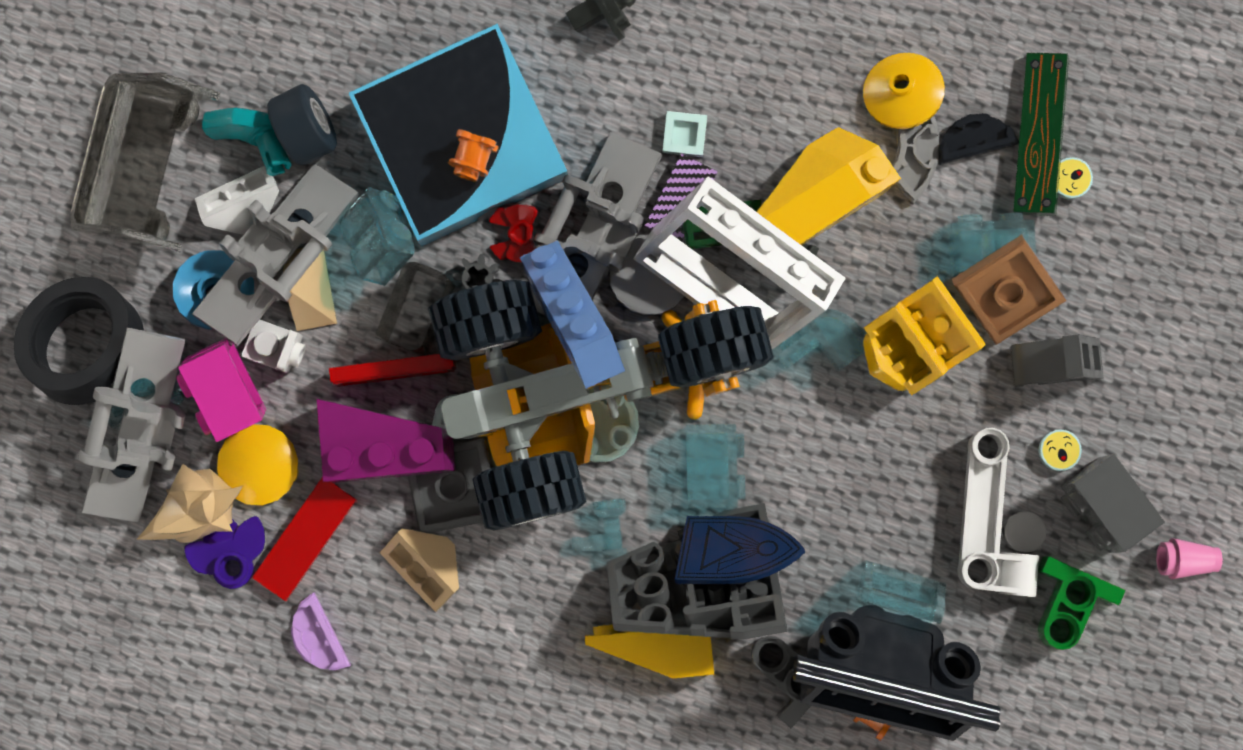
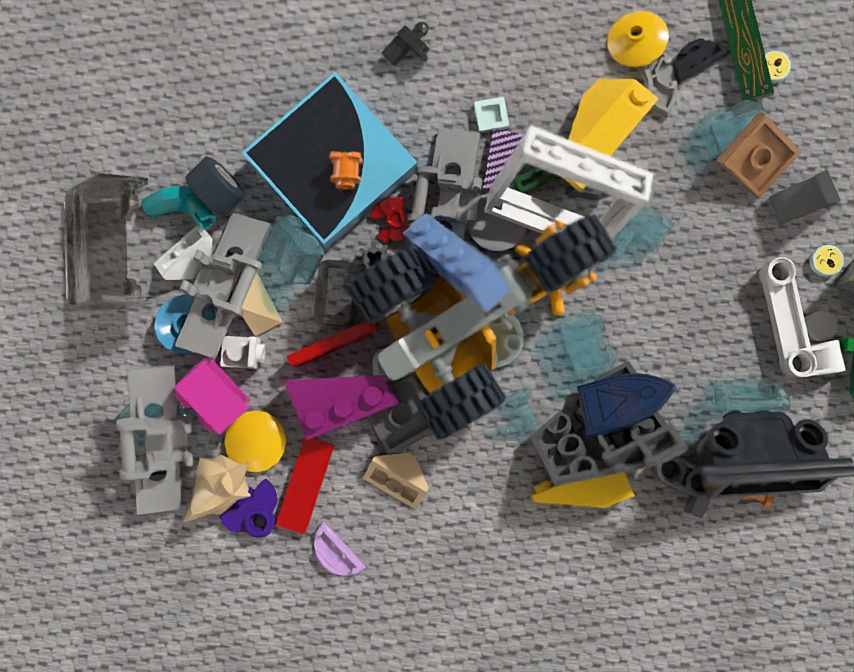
camera: 20 degrees left, 0 degrees up
(47, 313) = (68, 379): black tyre -> none
(919, 339) = (709, 208): yellow piece -> none

